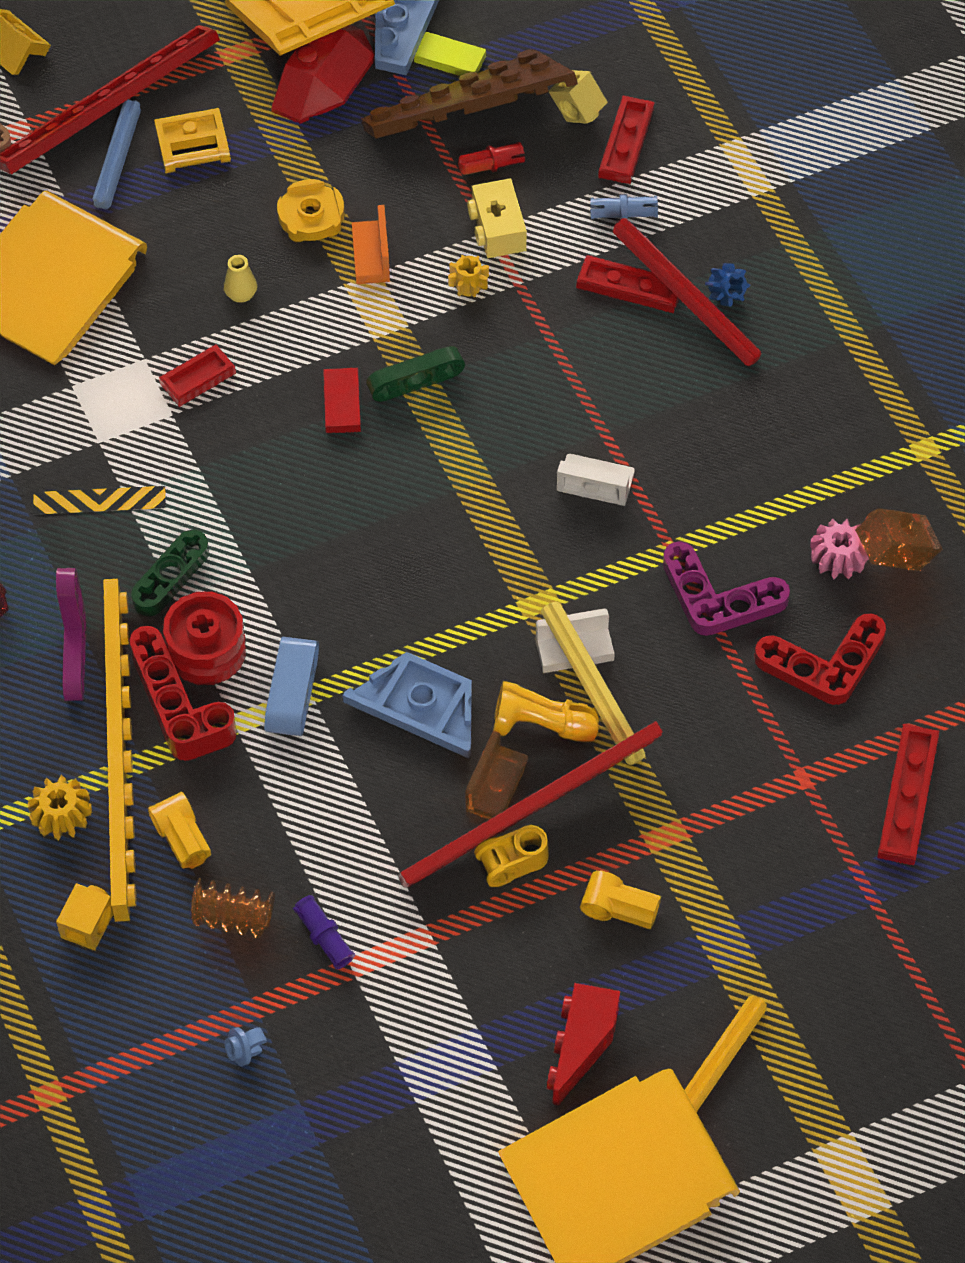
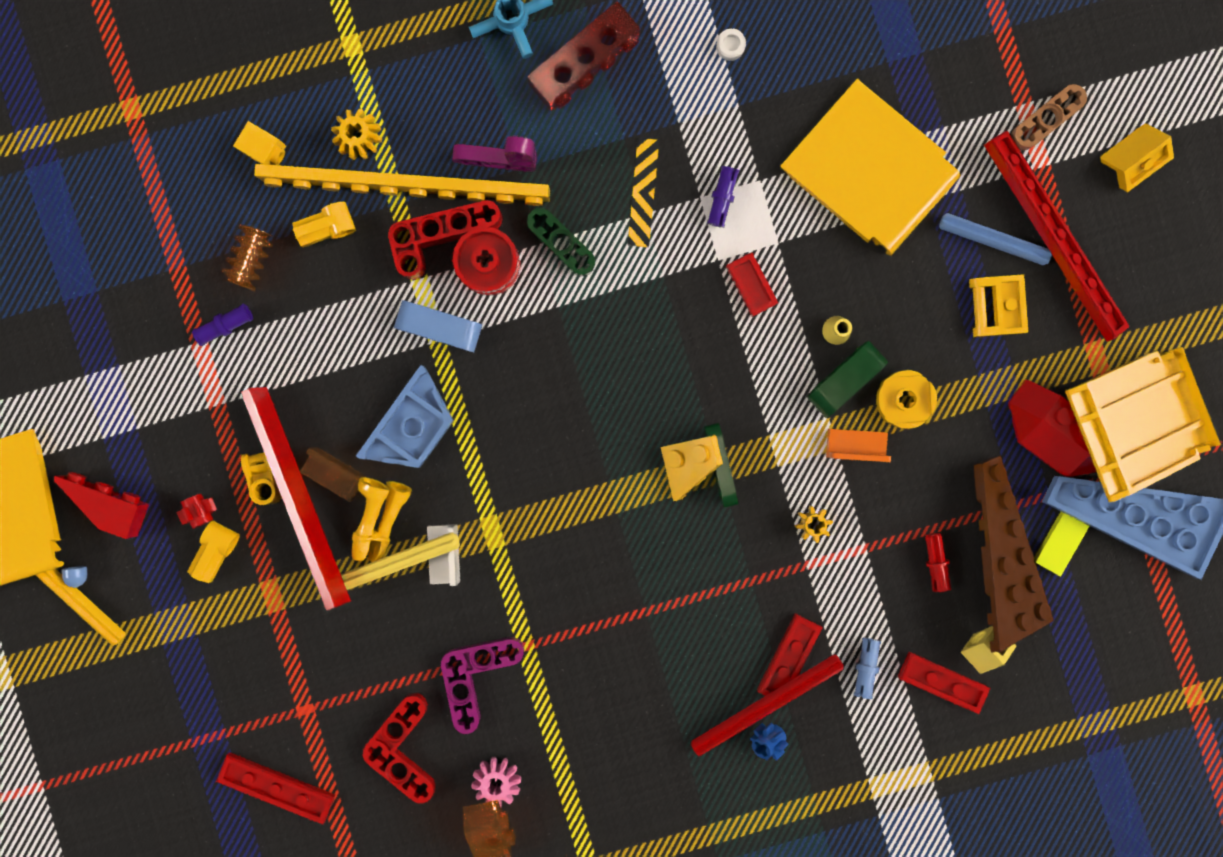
camera: 100 degrees right, 30 degrees up
(97, 413) = (723, 196): none -> dark purple pin
(243, 1046) = (138, 254): medium blue plate -> none
(296, 266) = (847, 379): none -> dark green beam
(342, 400) = (707, 401): red tile -> none
(418, 400) = (690, 463): none -> yellow wing
(498, 218) = (886, 563): light yellow brick -> none
(570, 923) = (196, 511): none -> red gear
(594, 479) = (599, 597): white panel -> none
(684, 1064) = (74, 576): none -> medium blue hinge

